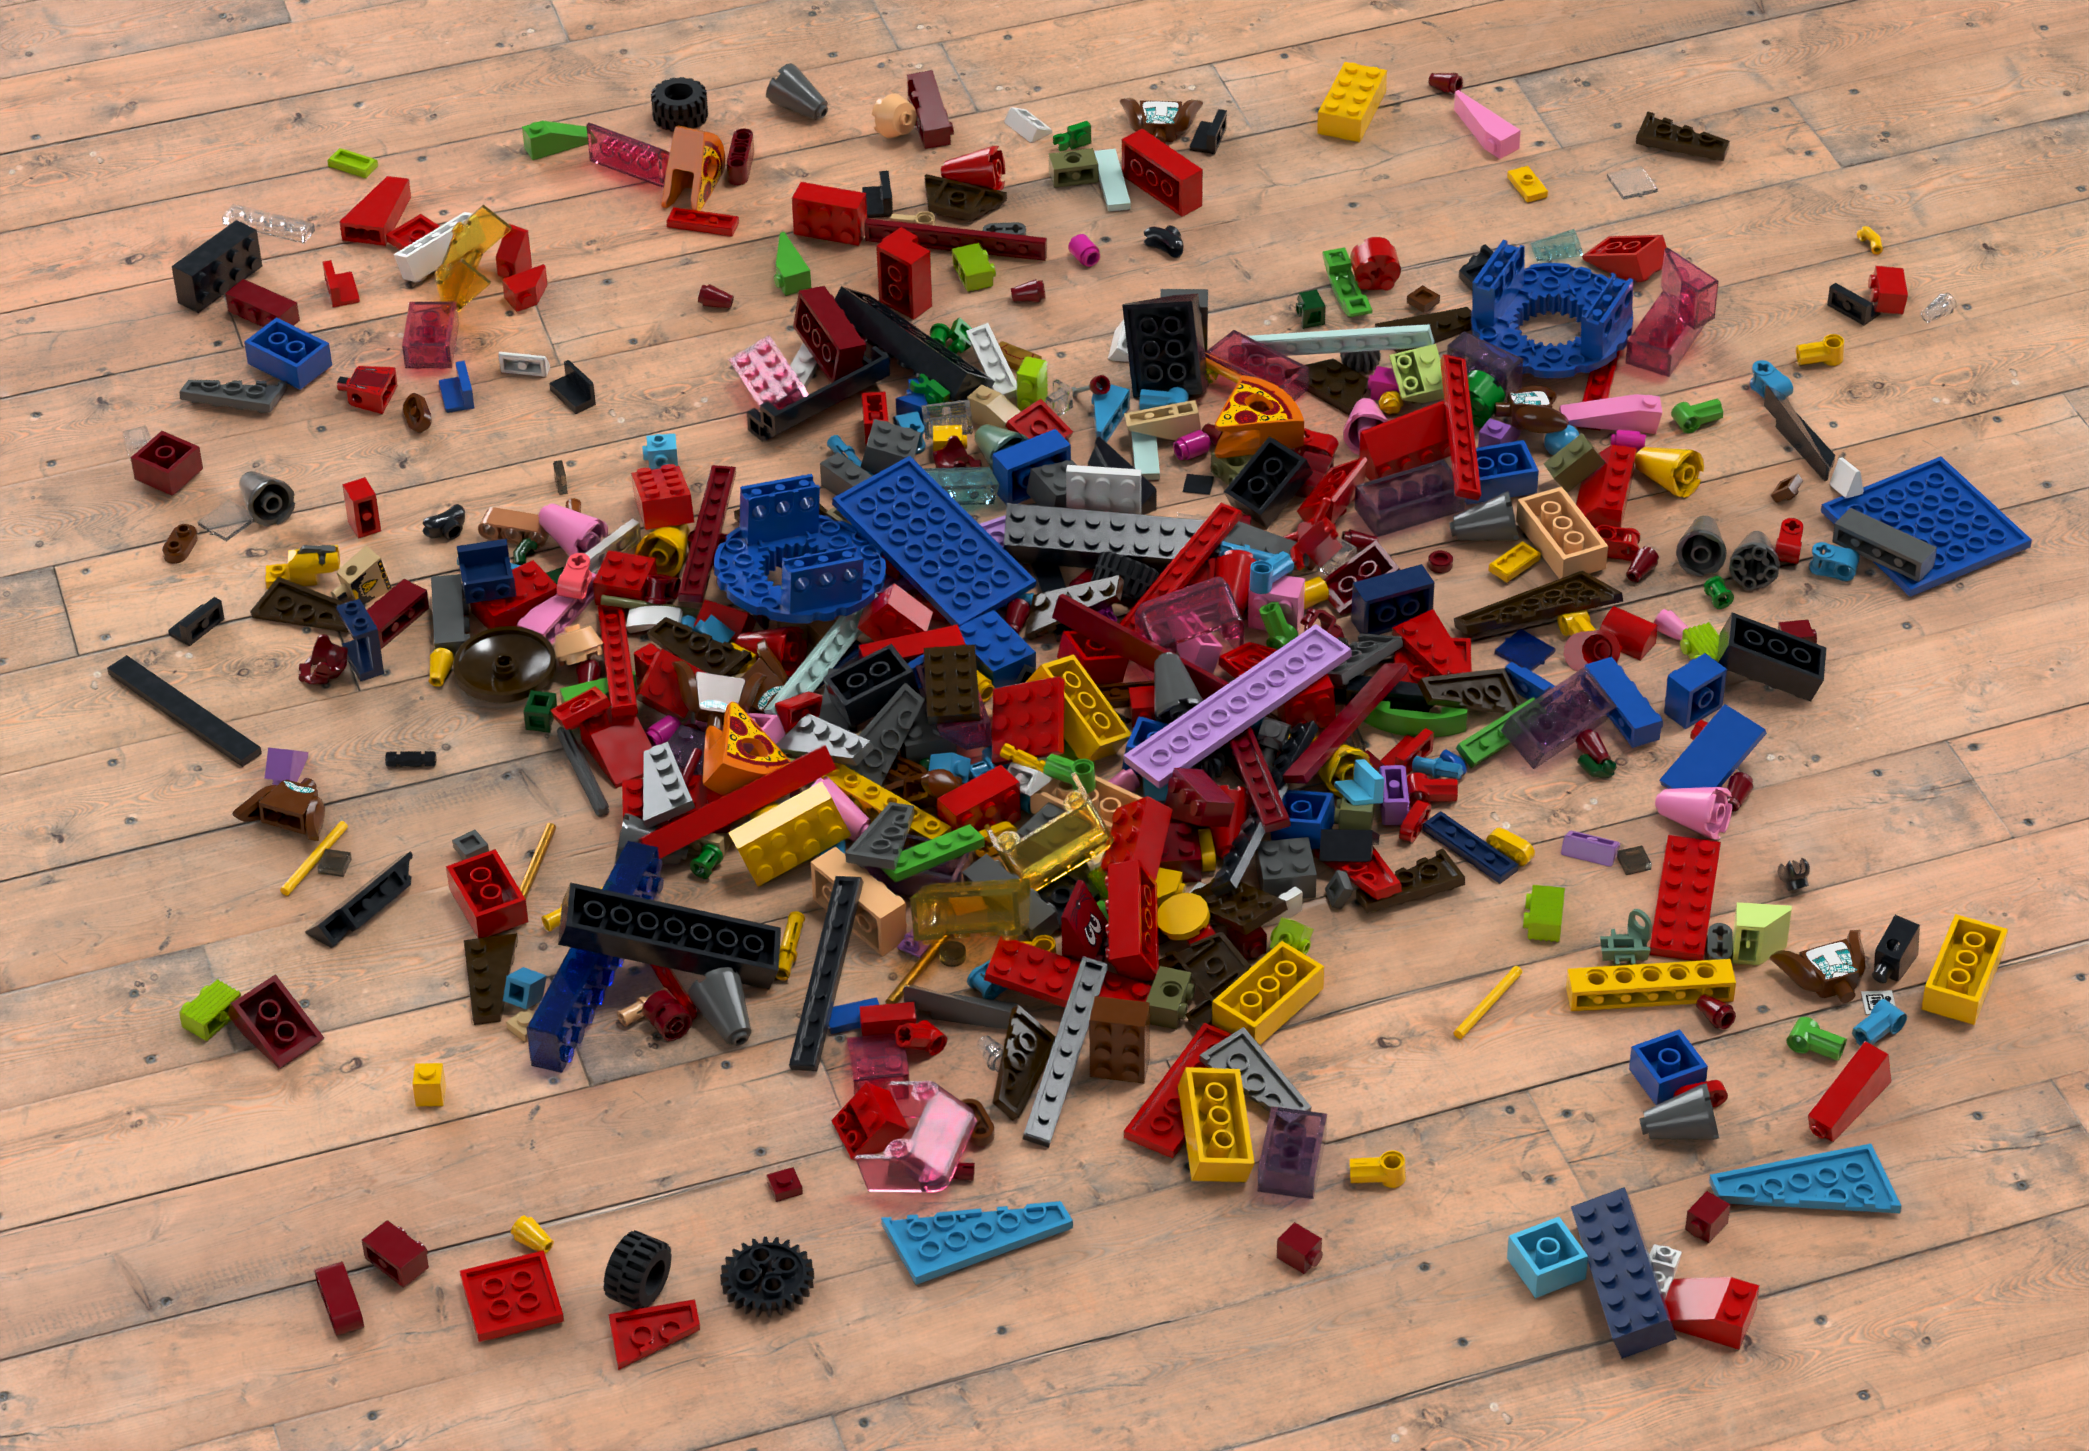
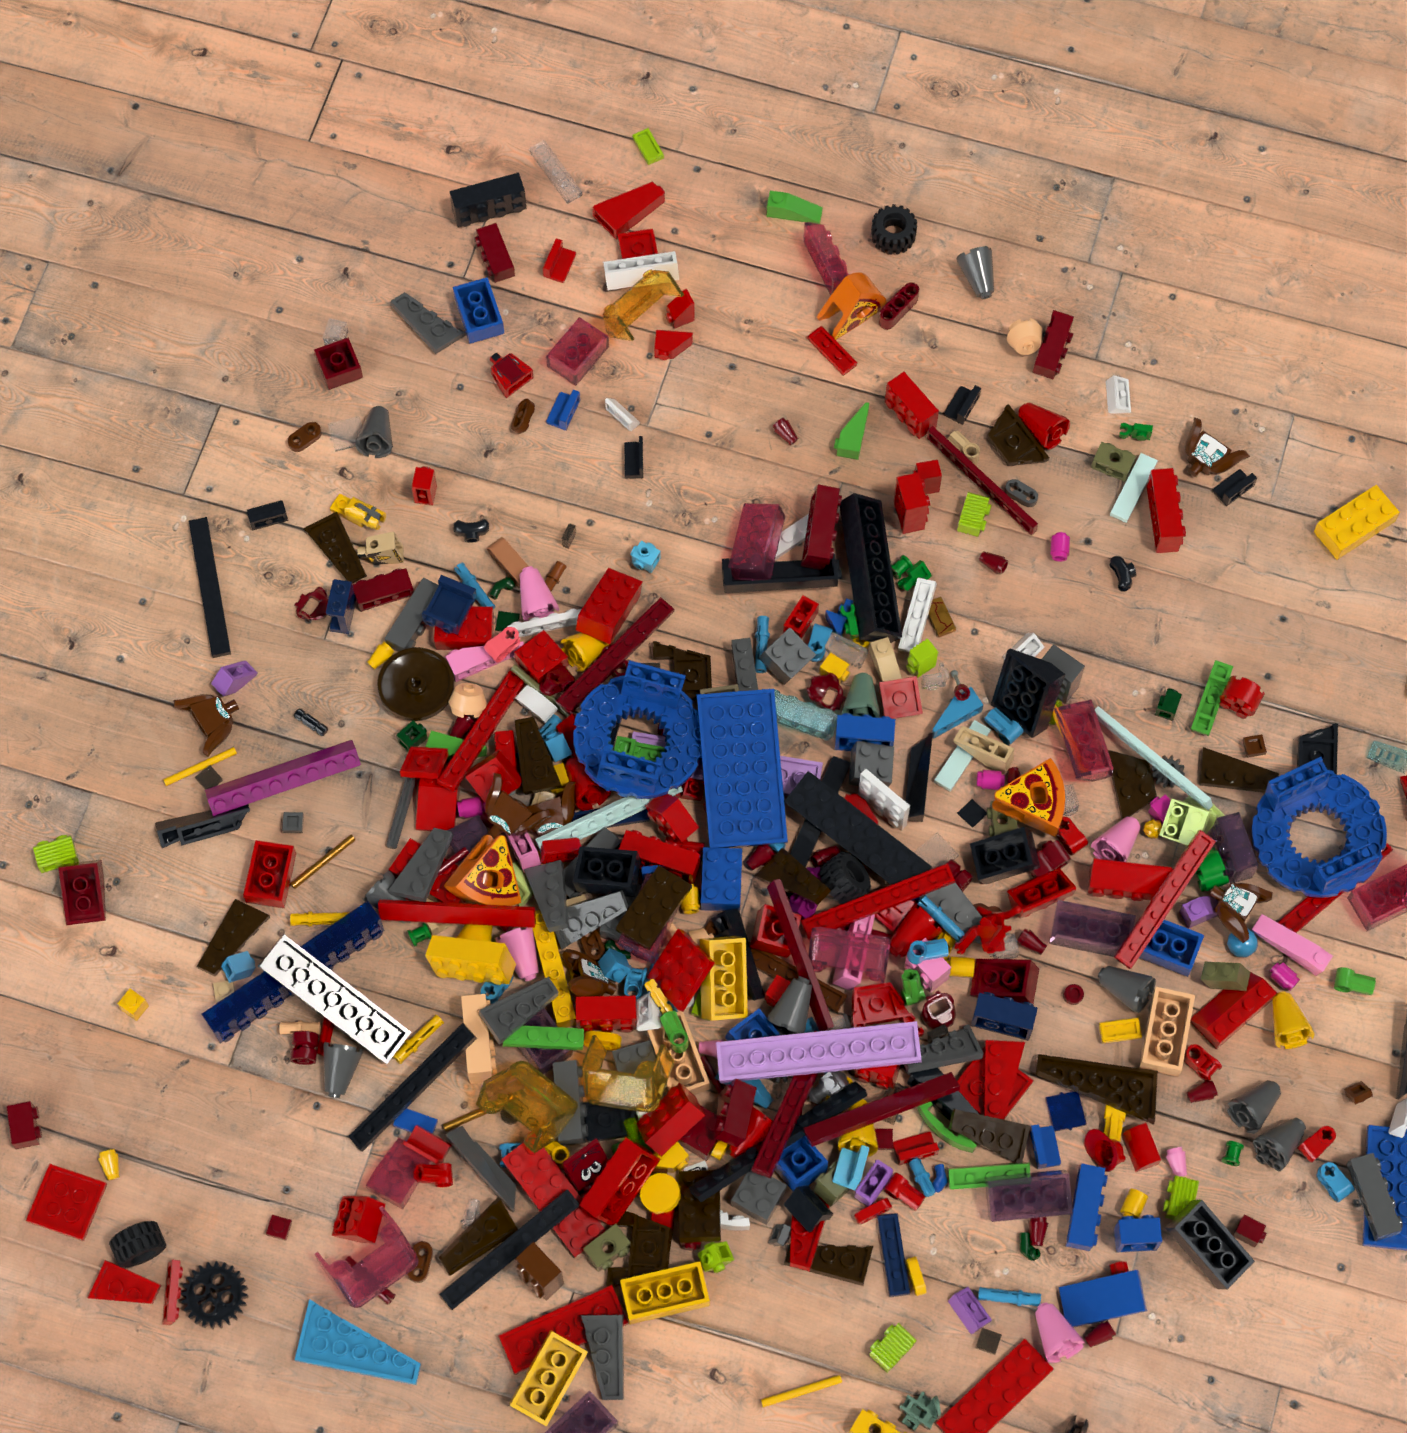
camera: 35 degrees right, 25 degrees up
(423, 811) = (282, 777): none -> magenta brick
(714, 1301) = (172, 1292): none -> red plate
(1627, 809) = (1006, 1296): none -> dark azure pin
(1659, 673) = (1134, 1203): none -> yellow brick

